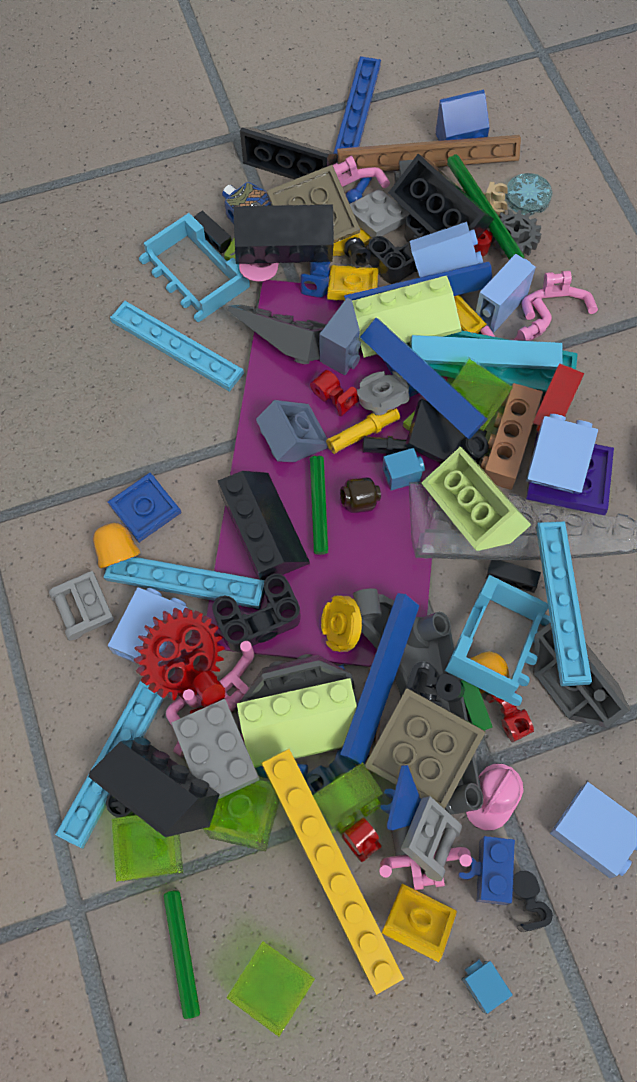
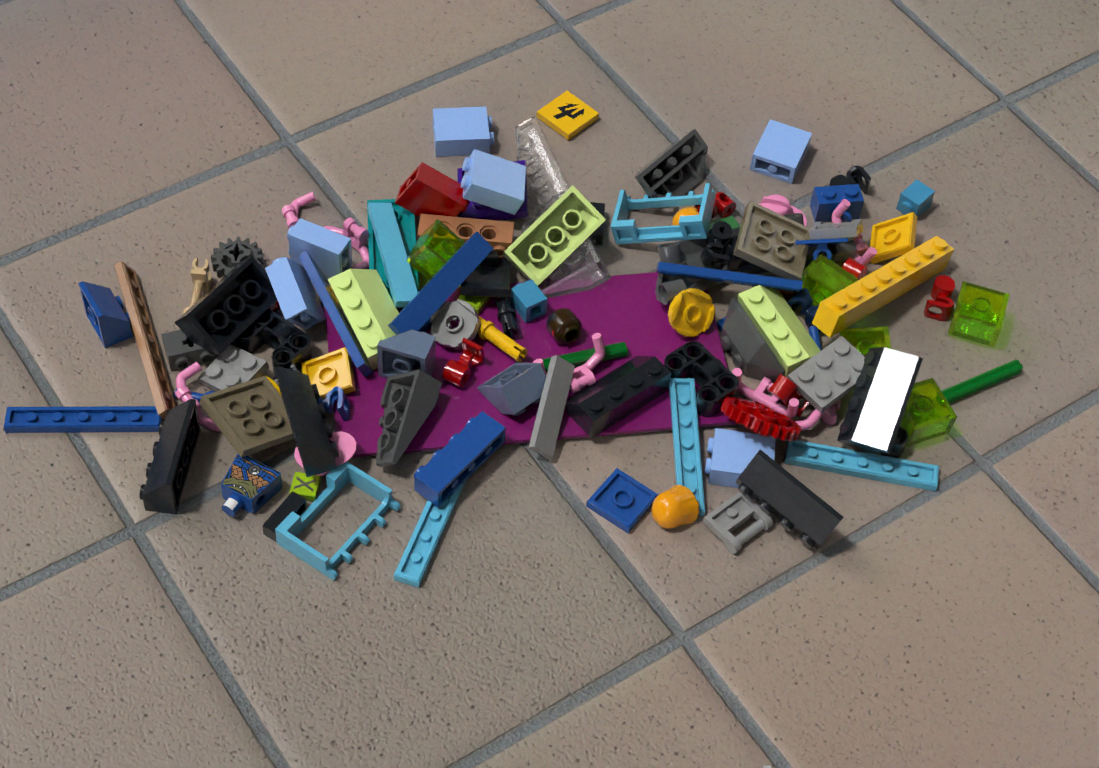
camera: 110 degrees left, 15 degrees down
(70, 650) = (788, 500): none -> black slope
(222, 366) = (459, 458): none -> blue brick
(257, 455) = (551, 406): none -> light grey tile
(296, 486) = (582, 375): none -> bright pink piece
(328, 962) = (941, 293): none -> red leg
(474, 192) = (201, 288): green axle -> none
(528, 193) = (176, 258): clear light blue tile -> none
(563, 604) = (624, 170): medium azure tile -> none

